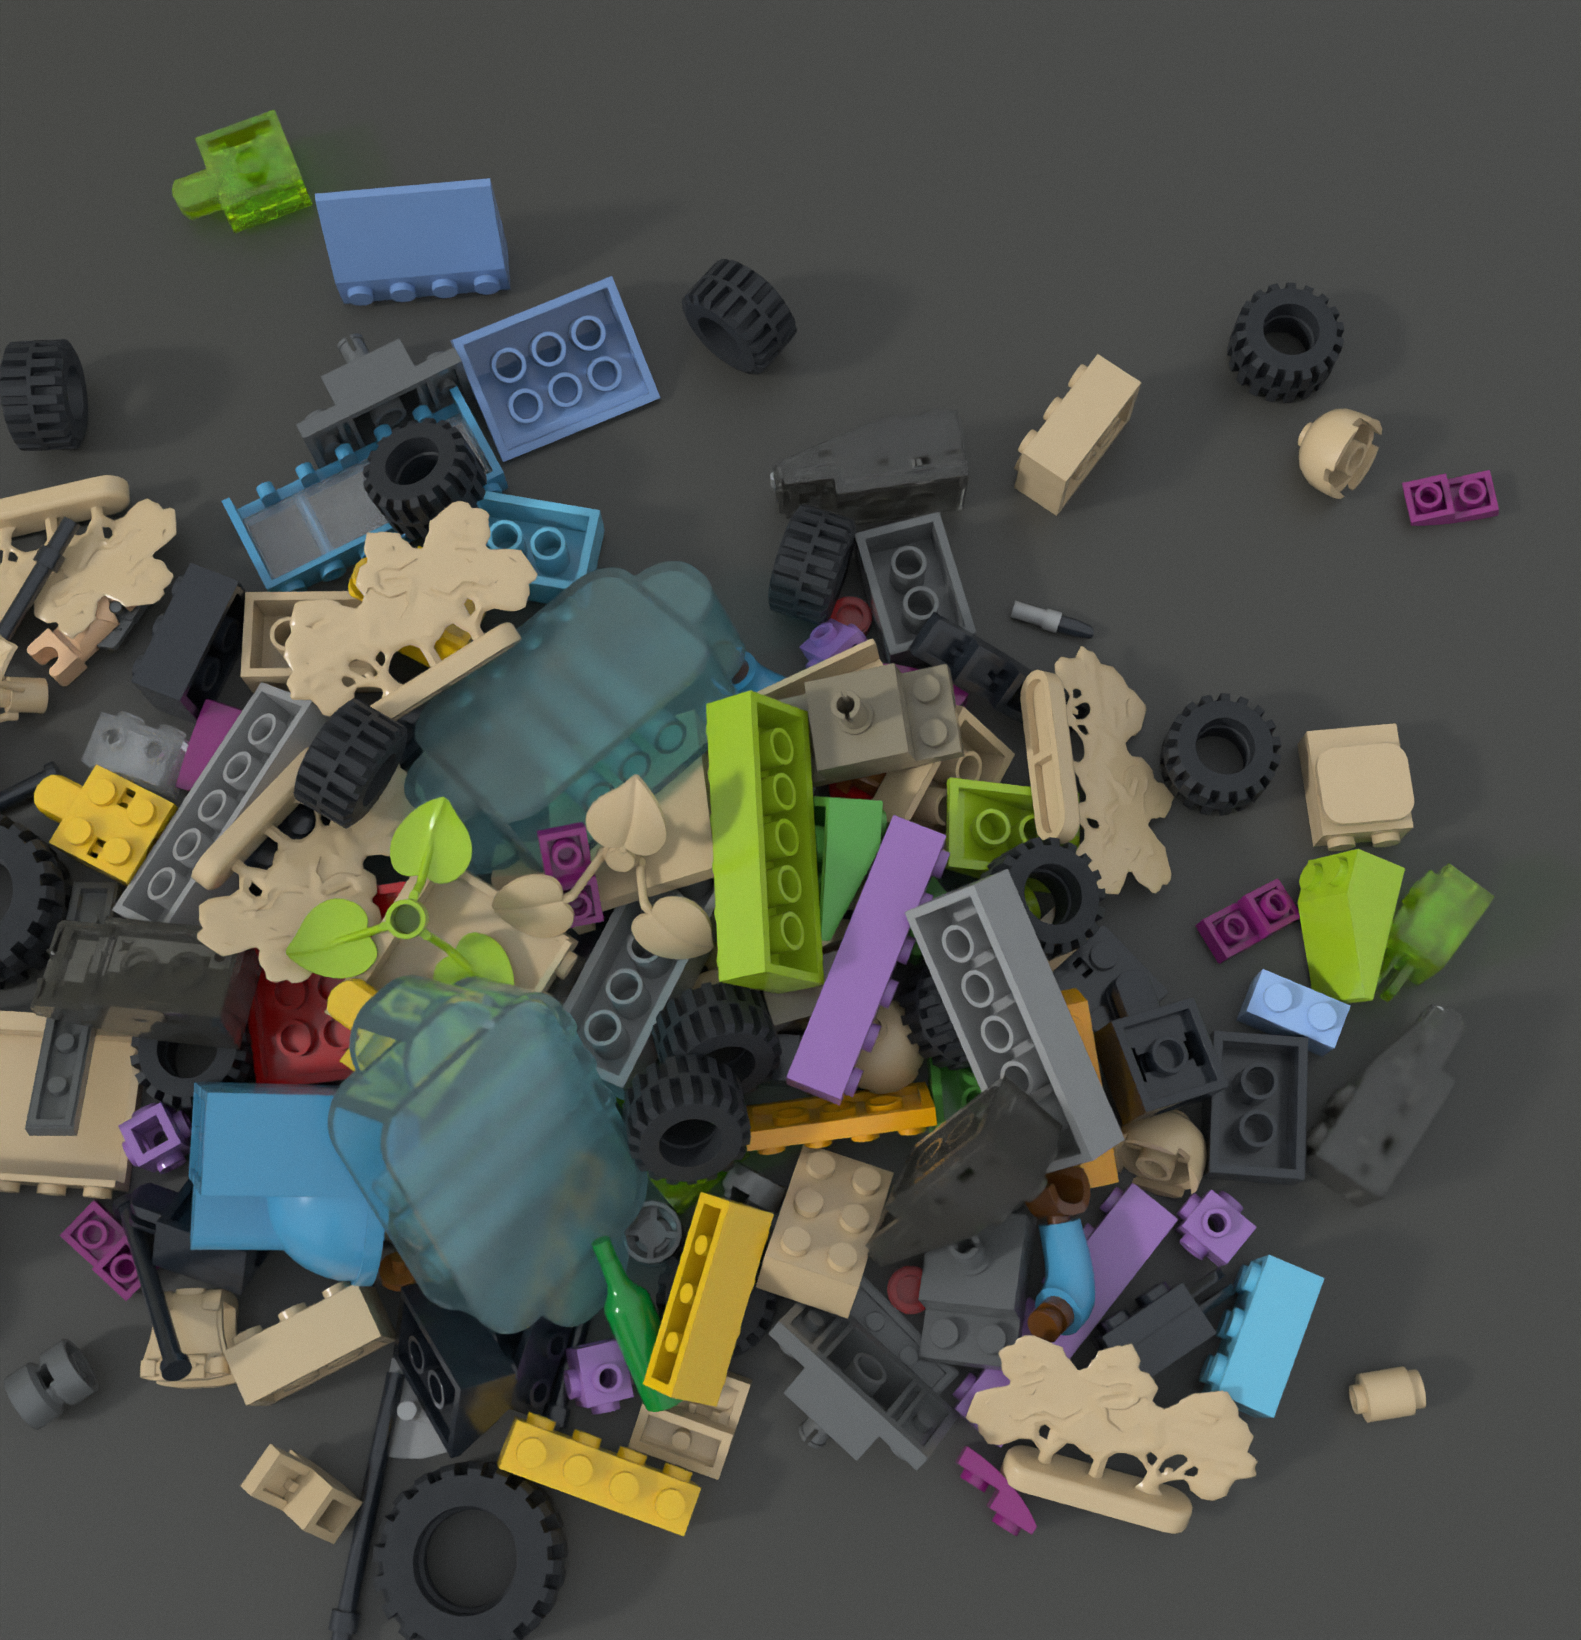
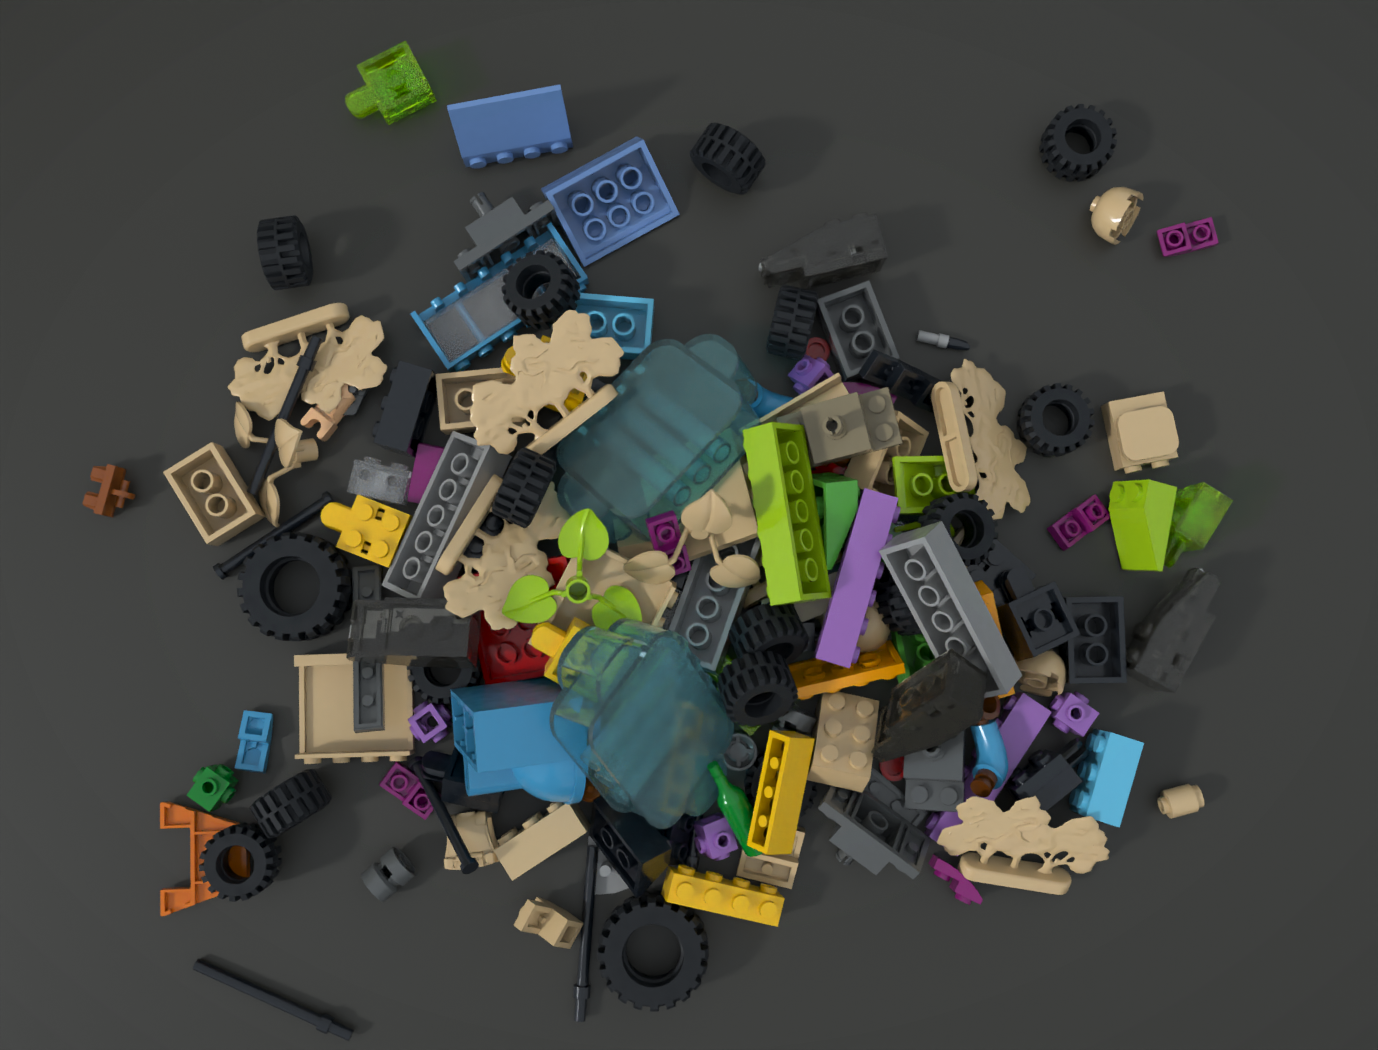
camera: 10 degrees left, 10 degrees up
(1075, 433) = (949, 217): tan brick -> none
(1294, 1011) = (1110, 578): light blue brick -> none

